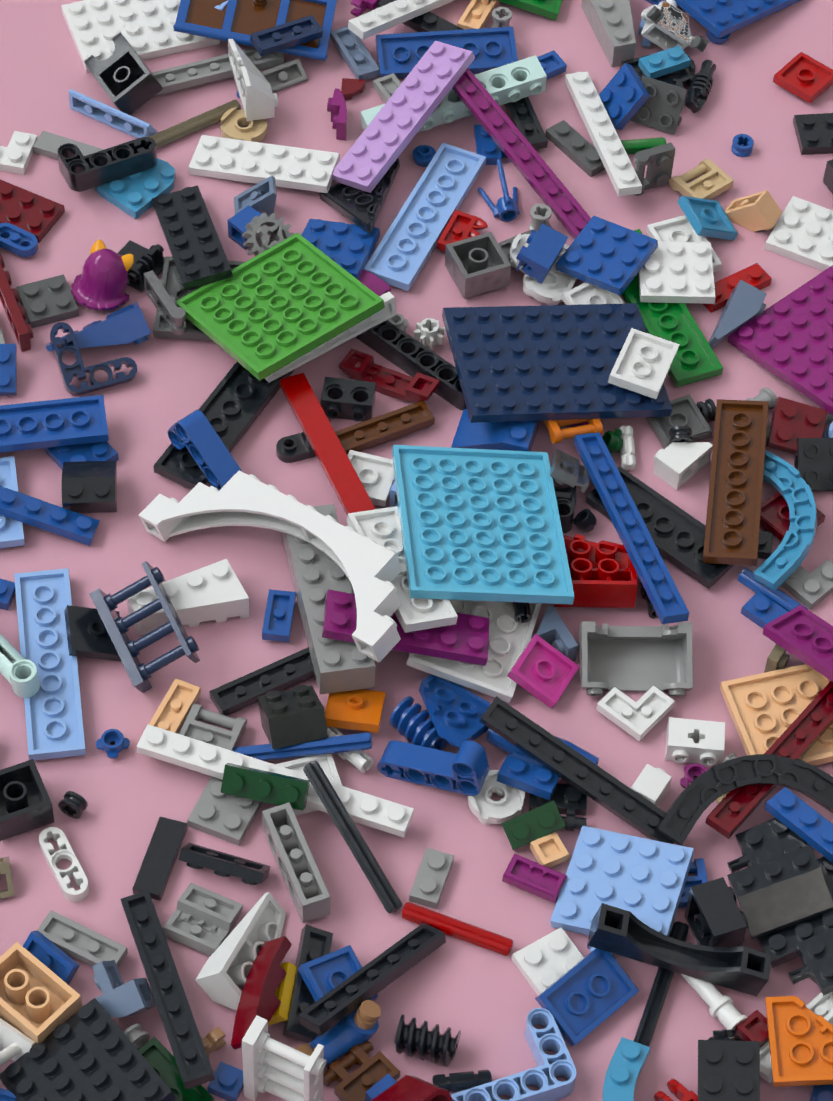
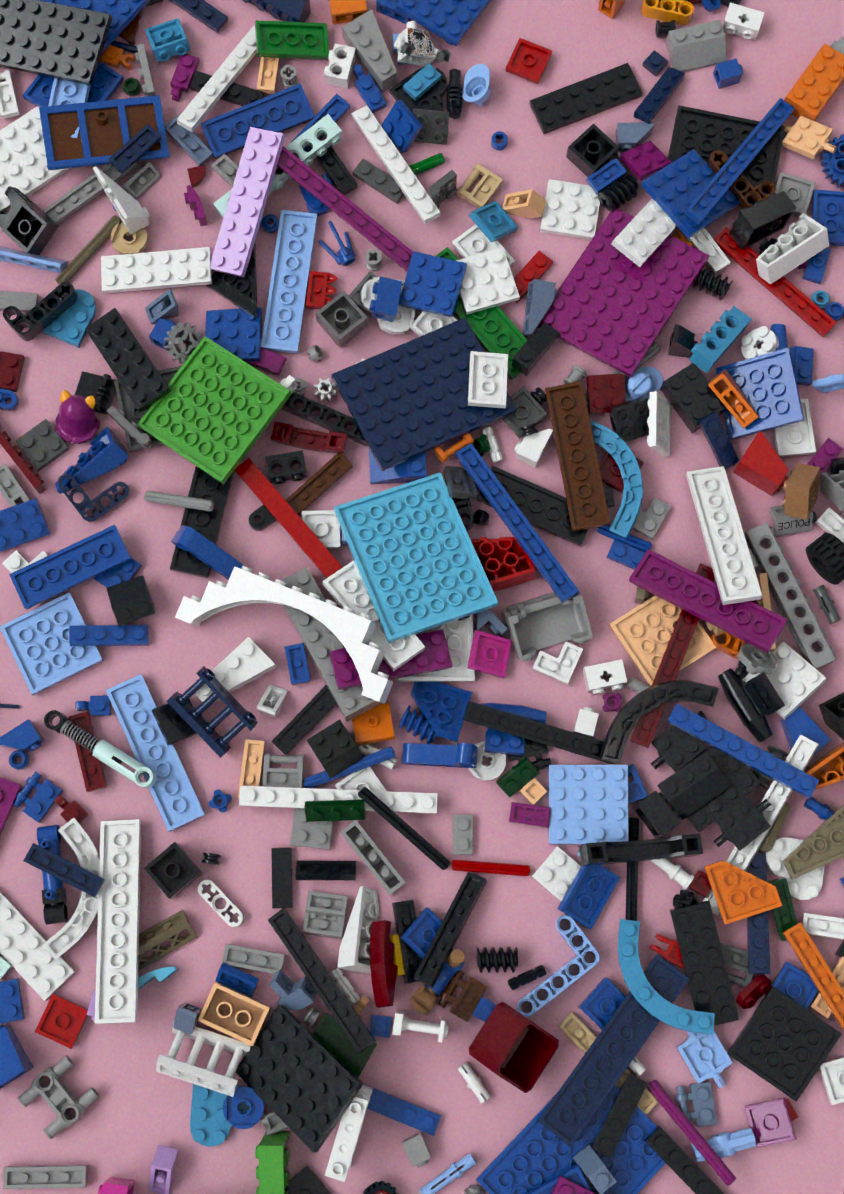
camera: 15 degrees left, 25 degrees up
(195, 396) = (178, 500): none -> light grey axle
(197, 1010) = (345, 986): none -> white axle
(226, 649) = (272, 701): none -> white slope
(430, 295) = (315, 353): none -> light grey hinge
(568, 27) = (343, 66): none -> white brick
(595, 59) = (368, 90): none -> blue plate
(714, 354) = (534, 349): none -> black slope
(732, 83) = (476, 84): none -> light blue piece

